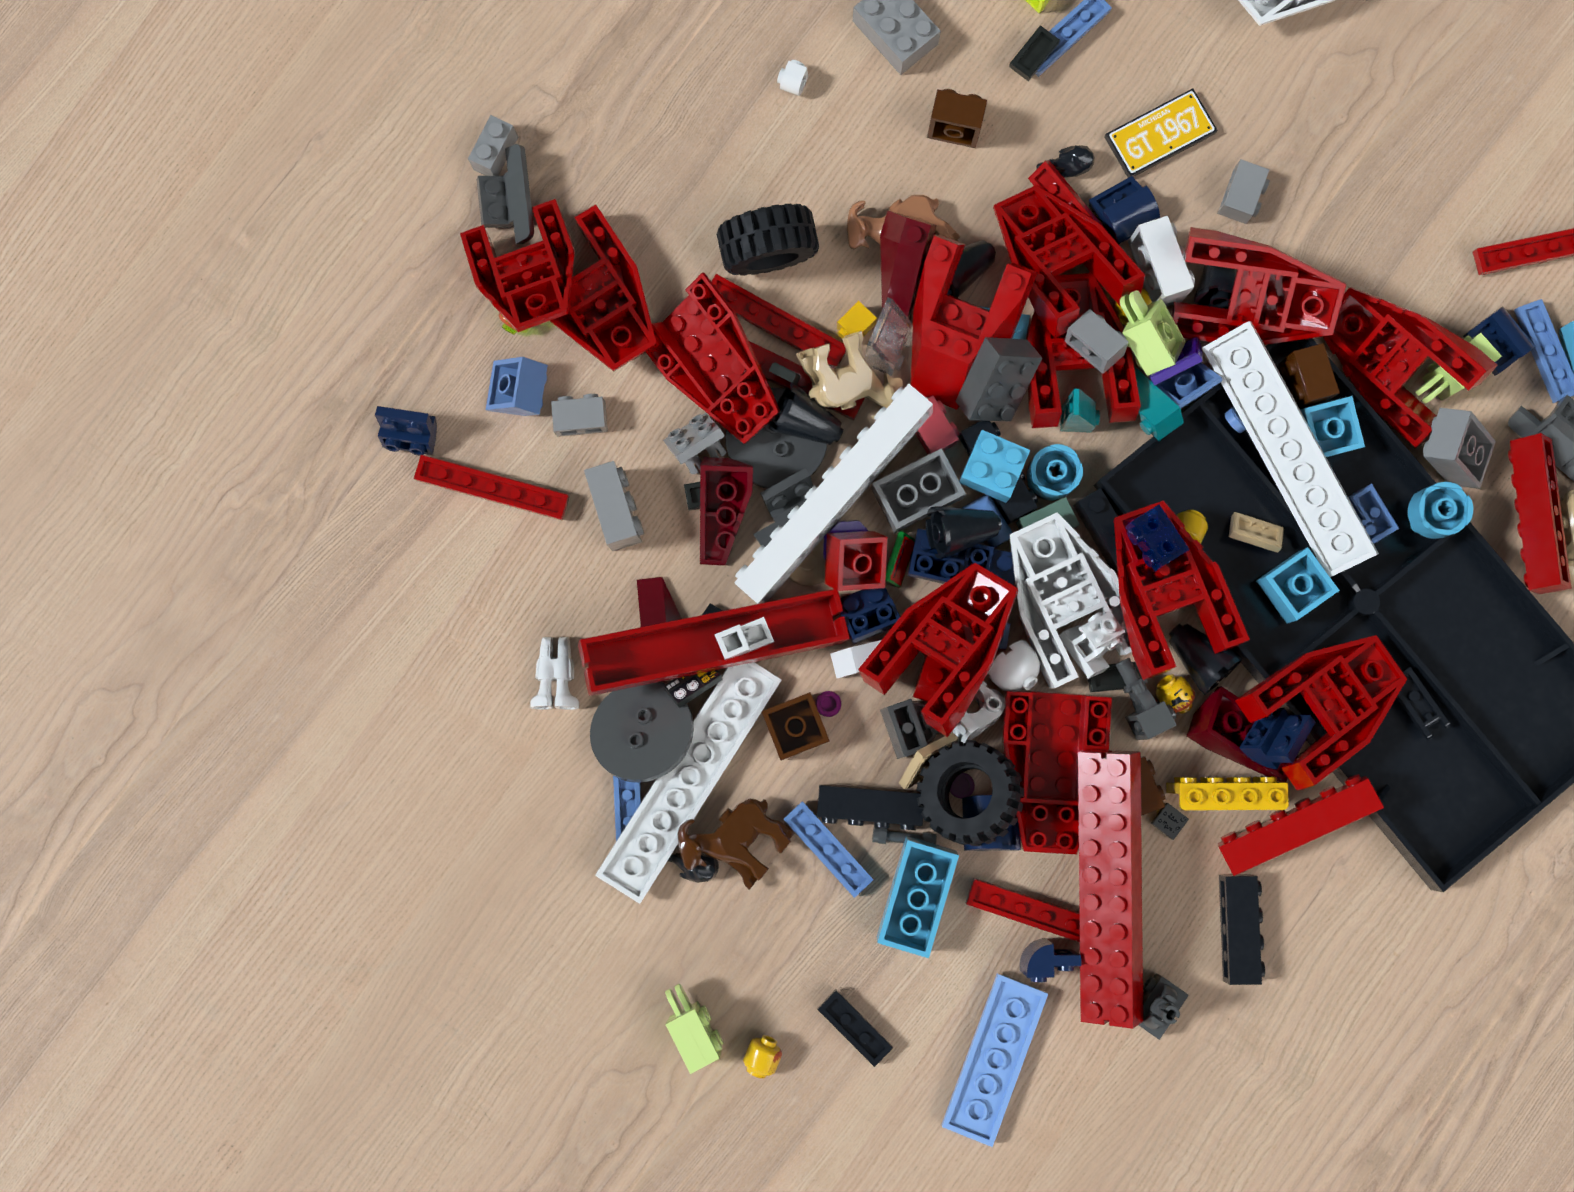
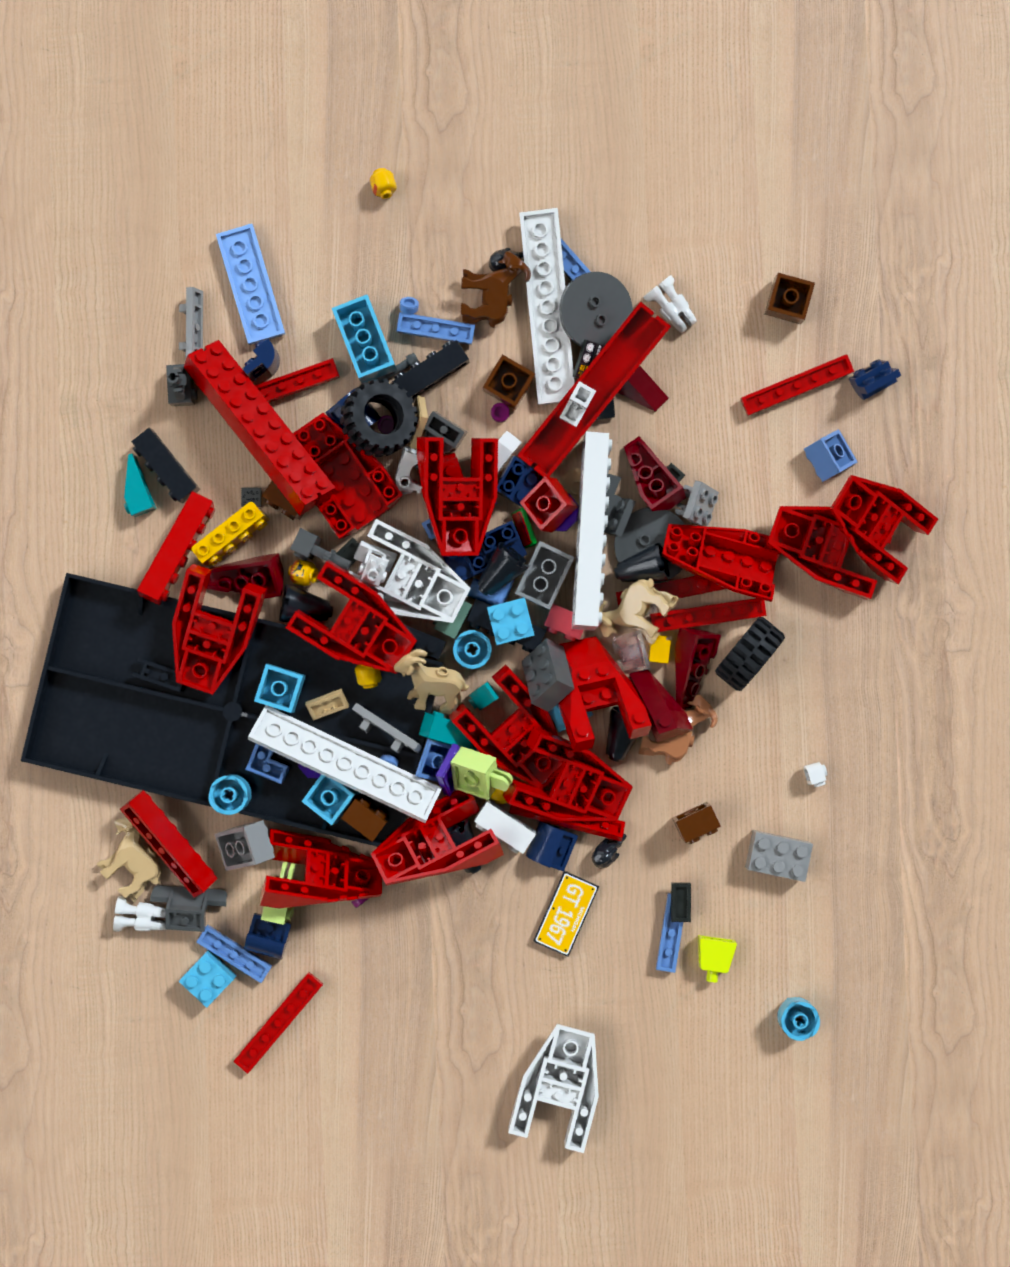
camera: 140 degrees right, 5 degrees up
(426, 583) = (789, 298): none -> reddish brown brick
(489, 151) = (962, 589): light grey brick -> none
(506, 198) = (929, 564): dark grey plate -> none
(579, 415) = (779, 466): light grey brick -> none
(614, 505) = (715, 427): light grey brick -> none
(692, 1031) = (434, 165): yellowish green brick -> none
(784, 373) = (676, 581): pearl dark grey tile -> none
(825, 293) = (692, 656): none -> dark red wedge
(838, 897) = (409, 305): none -> medium blue tile
(855, 1028) = (343, 240): black plate -> none
(1016, 669) = (406, 514): white cylinder -> none
(1090, 1065) = (194, 320): none -> light grey hinge
(1096, 341) = (507, 742): light grey brick -> none
(1129, 465) = (431, 681): none -> tan animal
(1156, 538) = (382, 646): clear blue brick -> none
(1220, 478) = (400, 739): none -> light grey hinge
(1243, 192) = (488, 913): light grey brick -> none
(1277, 738) = (226, 588): dark blue brick -> none
(1293, 924) = (137, 492): none -> teal slope

